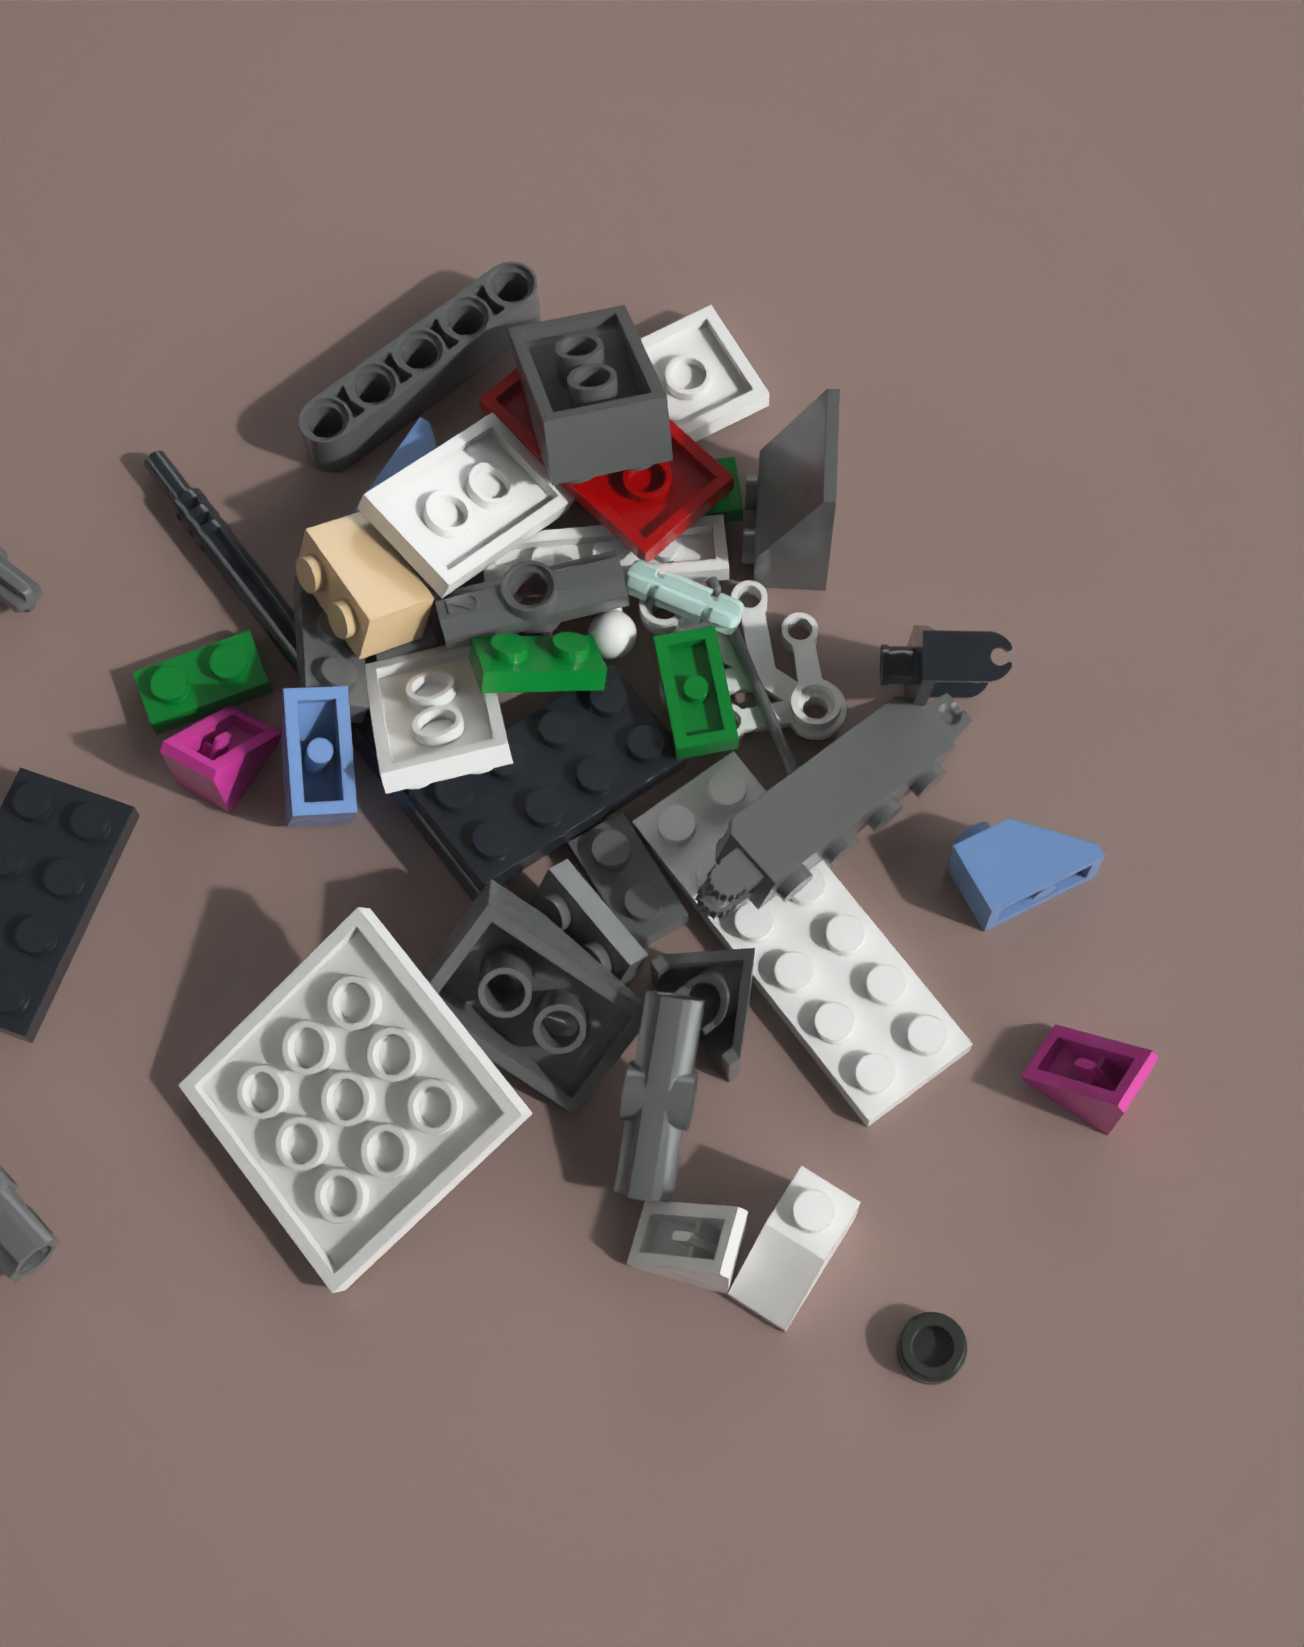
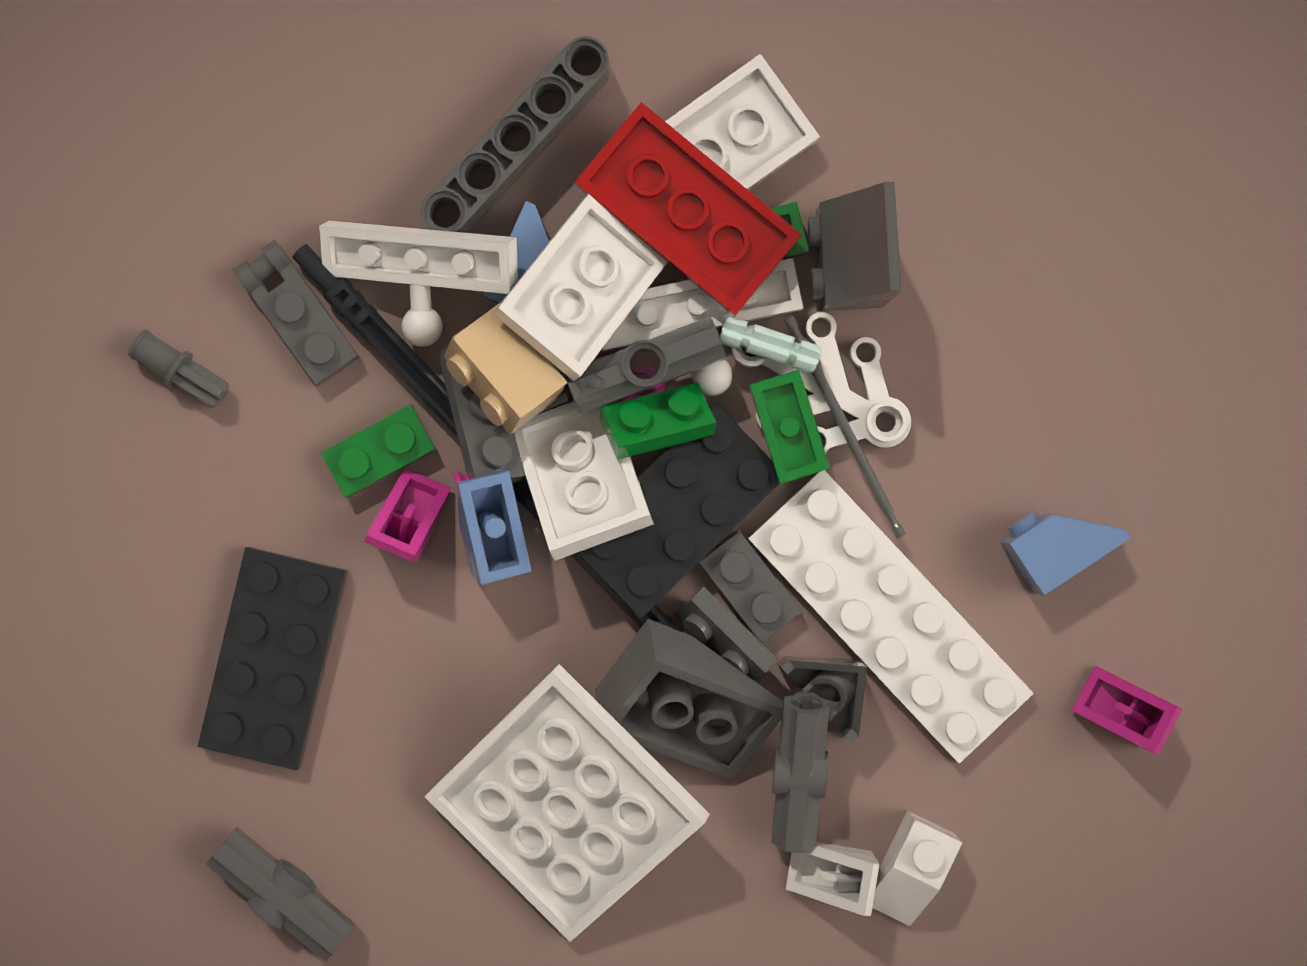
camera: 10 degrees left, 20 degrees up
(138, 527) = (297, 314): none -> dark grey plate
(285, 466) = (422, 261): none -> white plate
(592, 395) = (673, 175): dark grey slope -> none
(829, 801) = (910, 515): dark grey hinge -> none
(931, 1348) = (1019, 926): pearl dark grey tile -> none
(943, 663) = (992, 420): black piece -> none

